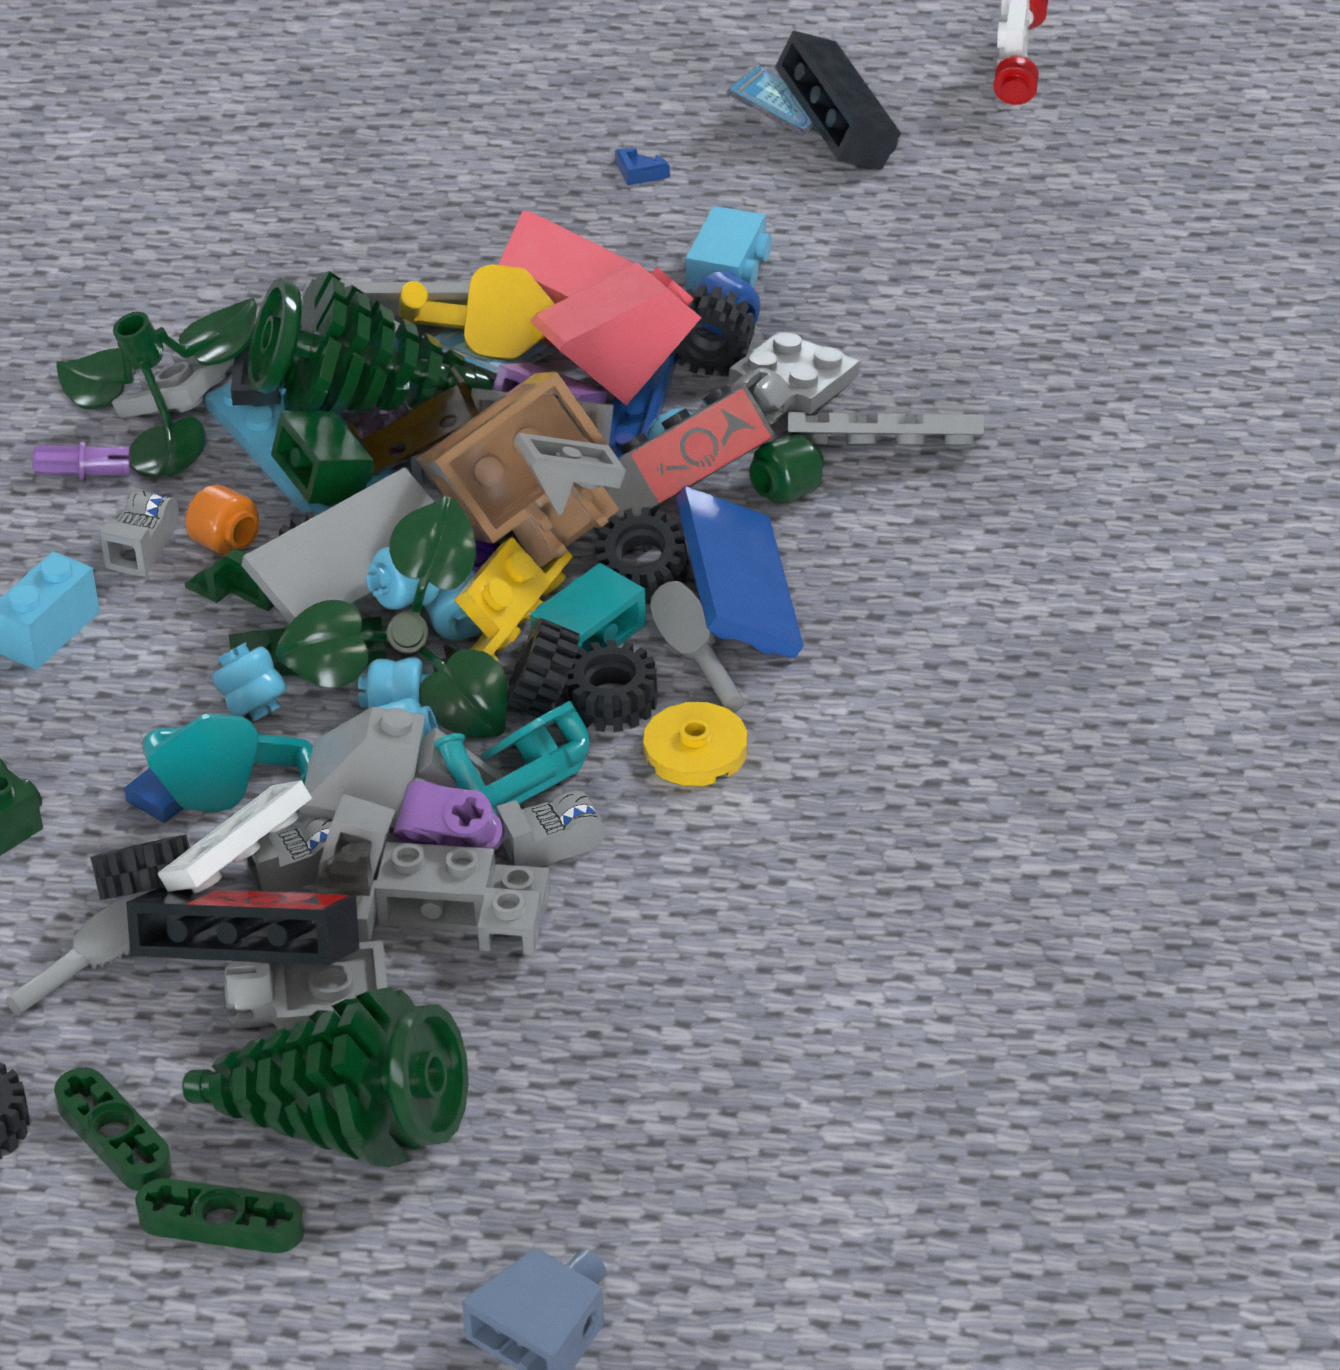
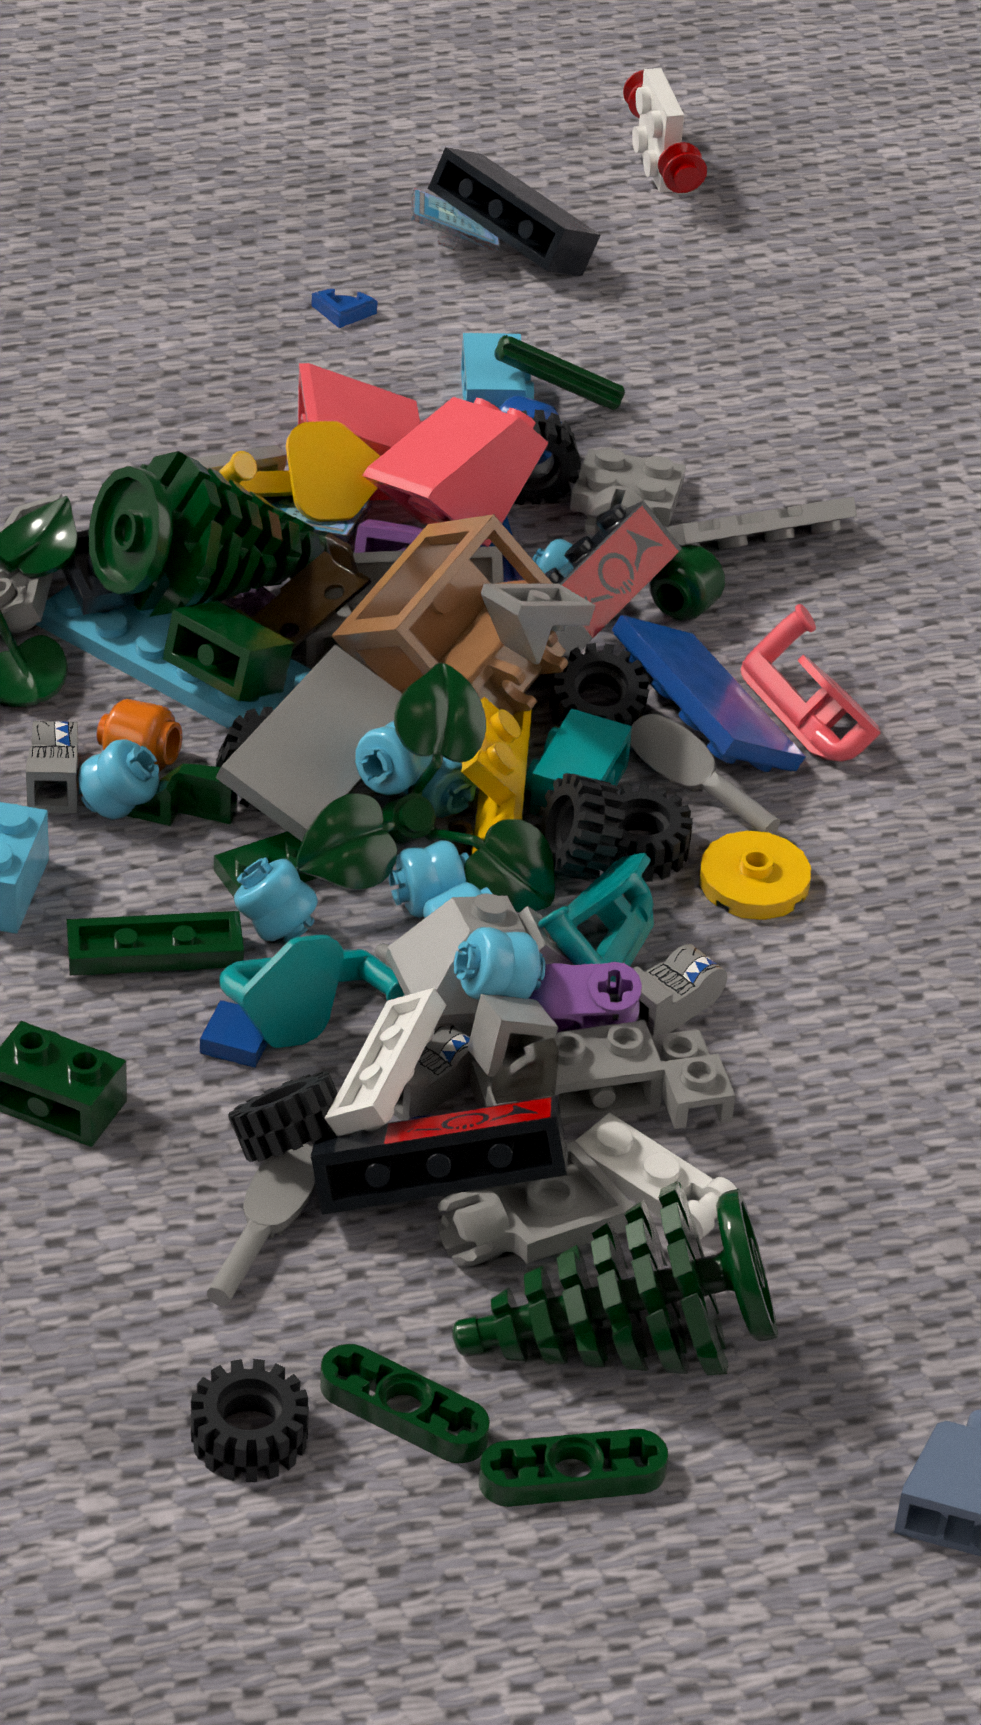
camera: 25 degrees left, 0 degrees up
(131, 698) = (154, 943): none -> dark green plate
(179, 552) = (118, 779): none -> medium azure piece
(373, 772) = (499, 964): none -> medium azure piece
(436, 977) = (644, 1167): none -> white plate
(781, 256) = (559, 372): none -> dark green axle
(842, 593) = (809, 719): none -> coral piece

